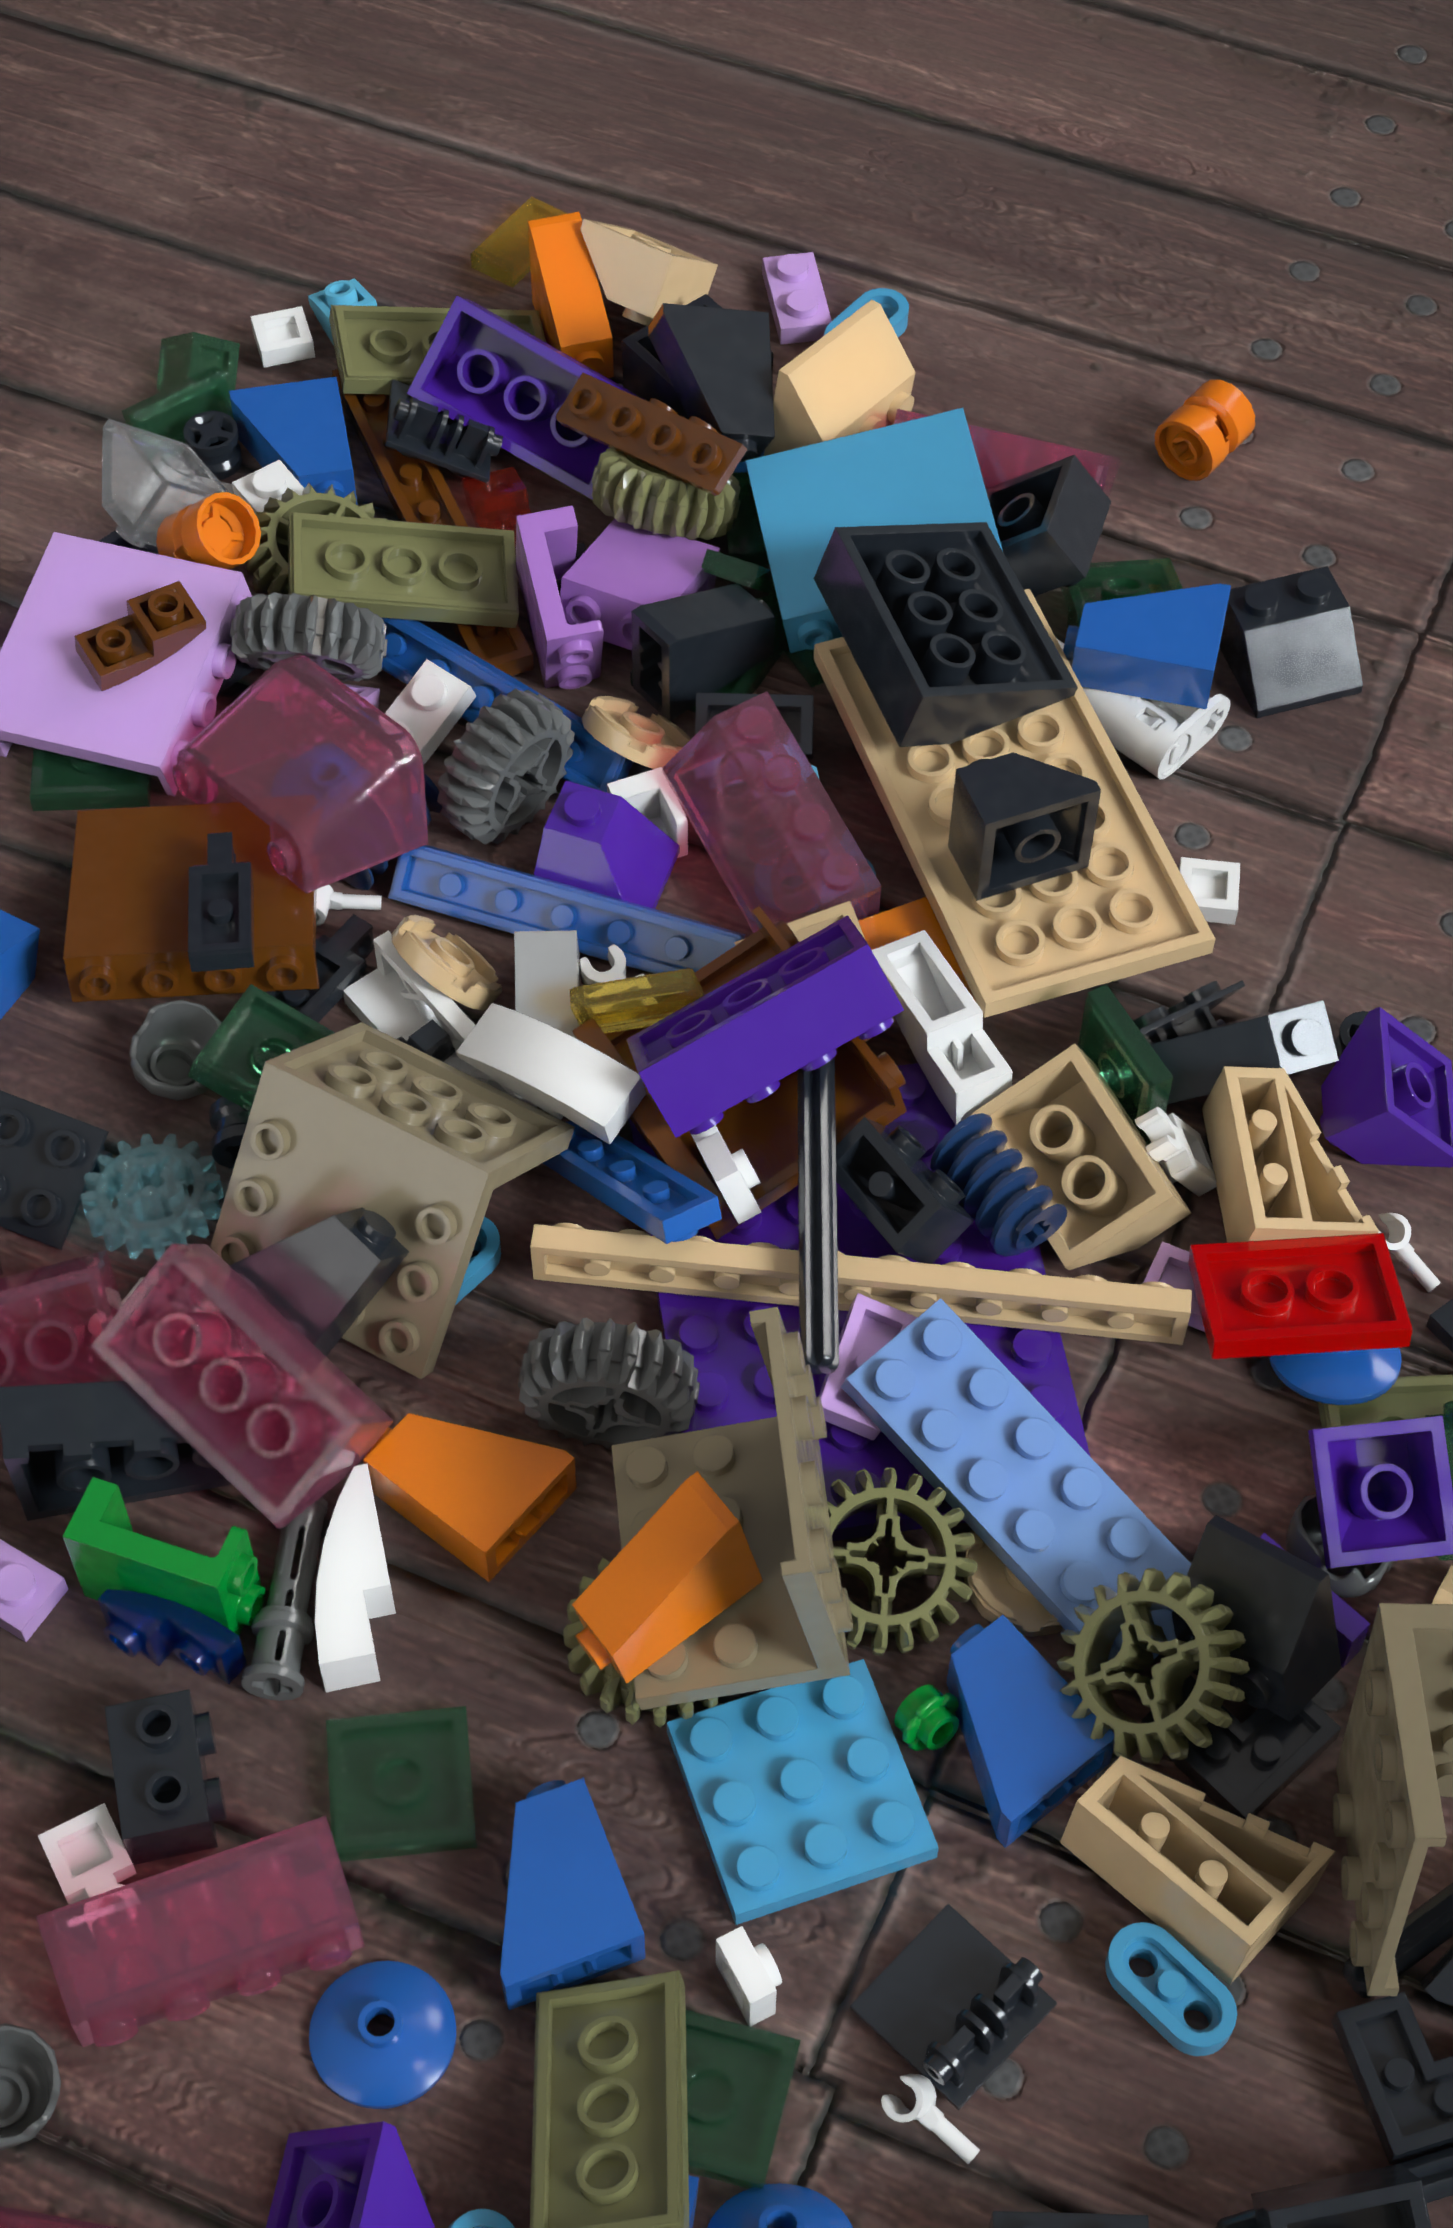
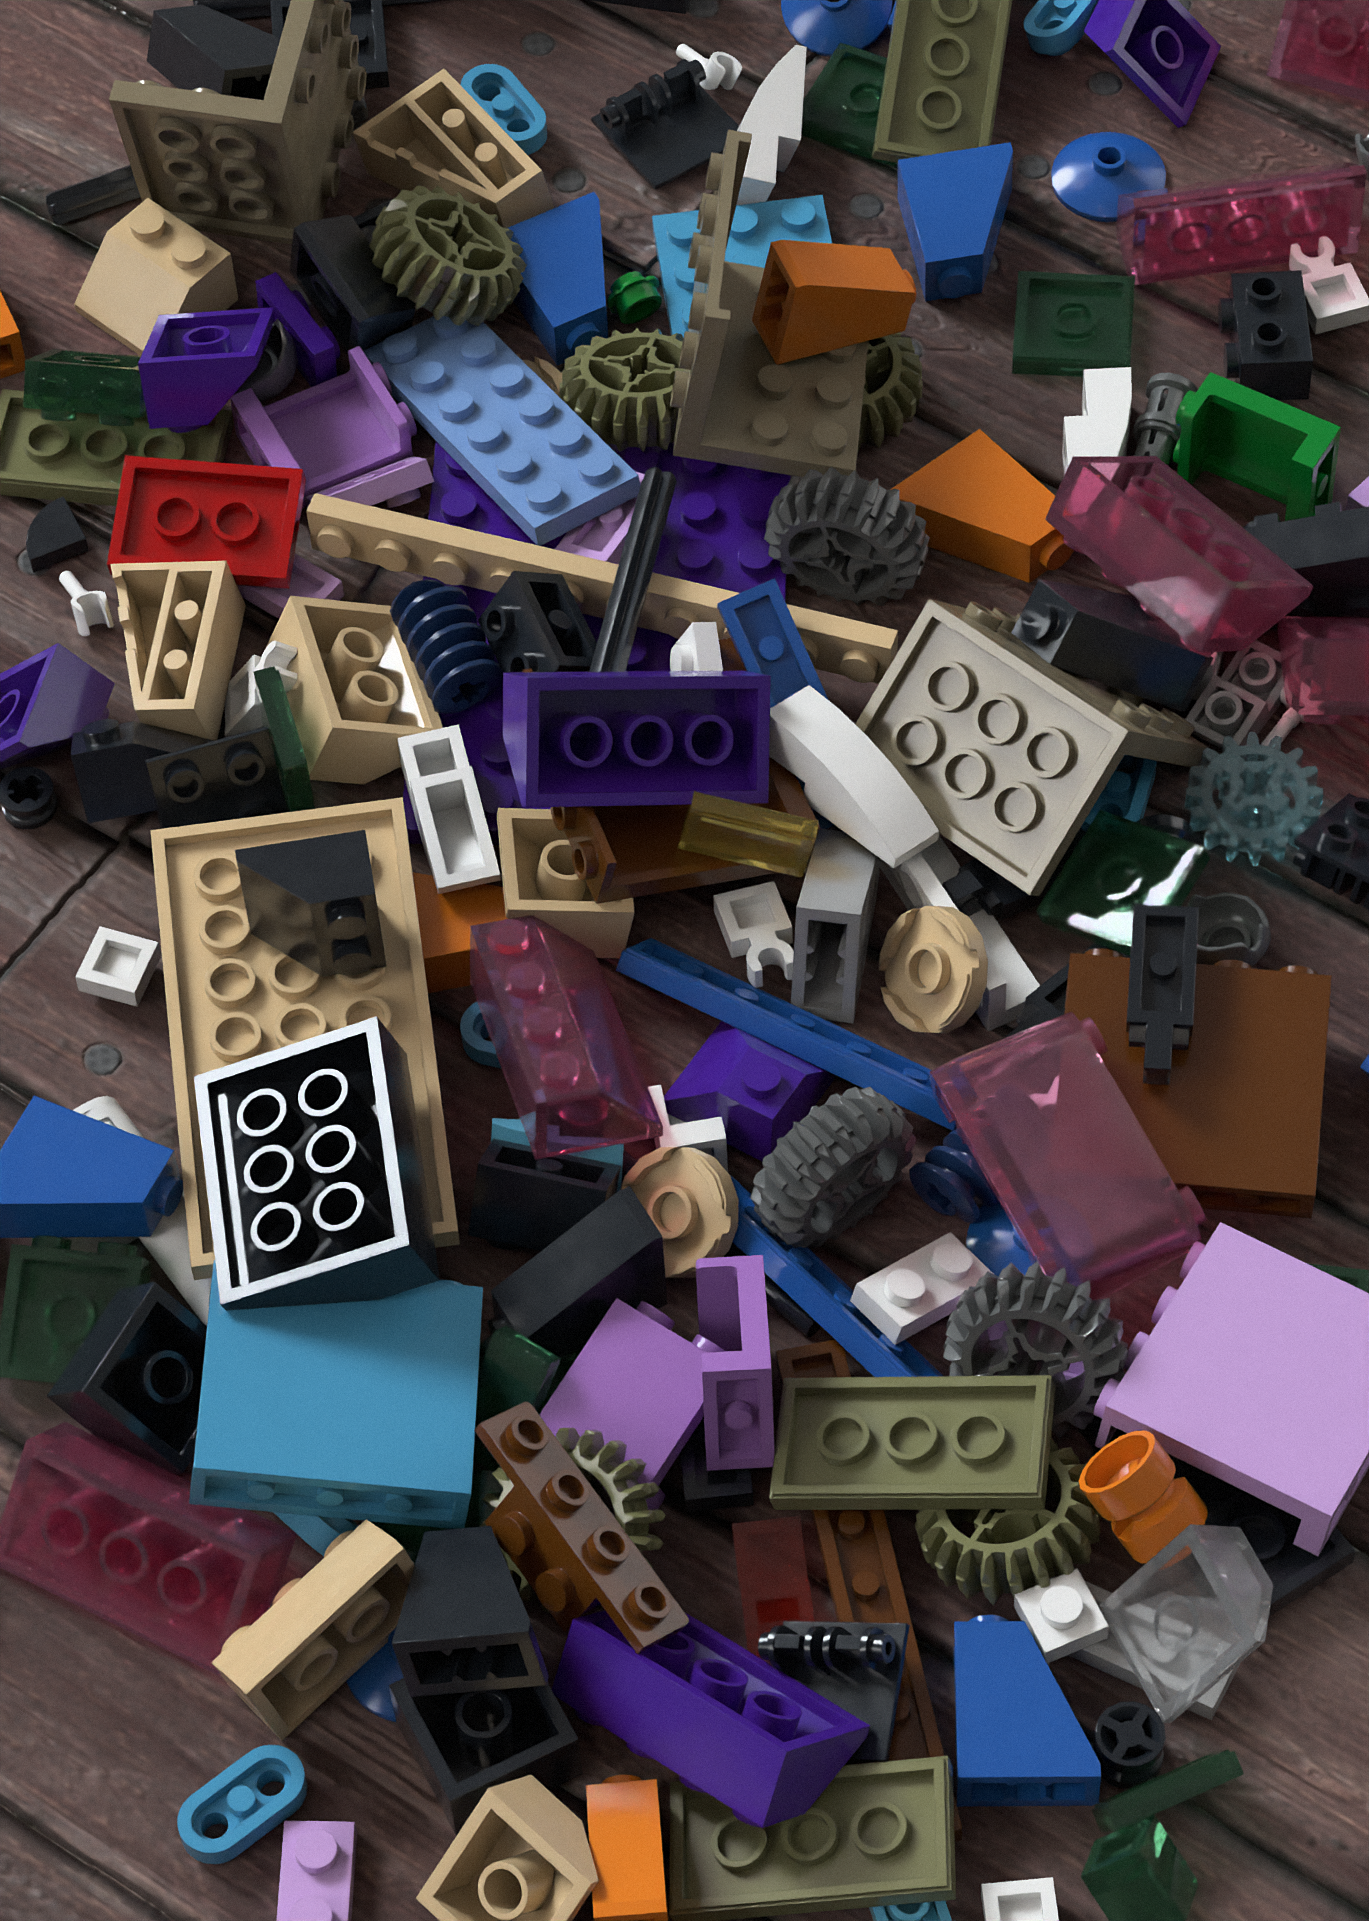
camera: 165 degrees left, 0 degrees up
(153, 631) = (1232, 1350): reddish brown slope -> none
(748, 1974) = (822, 152): white plate -> none
(825, 1982) = (775, 126): none -> white slope
(1149, 1411) = (393, 484): none -> lavender plate
(1235, 1463) = (328, 429): none -> medium lavender panel

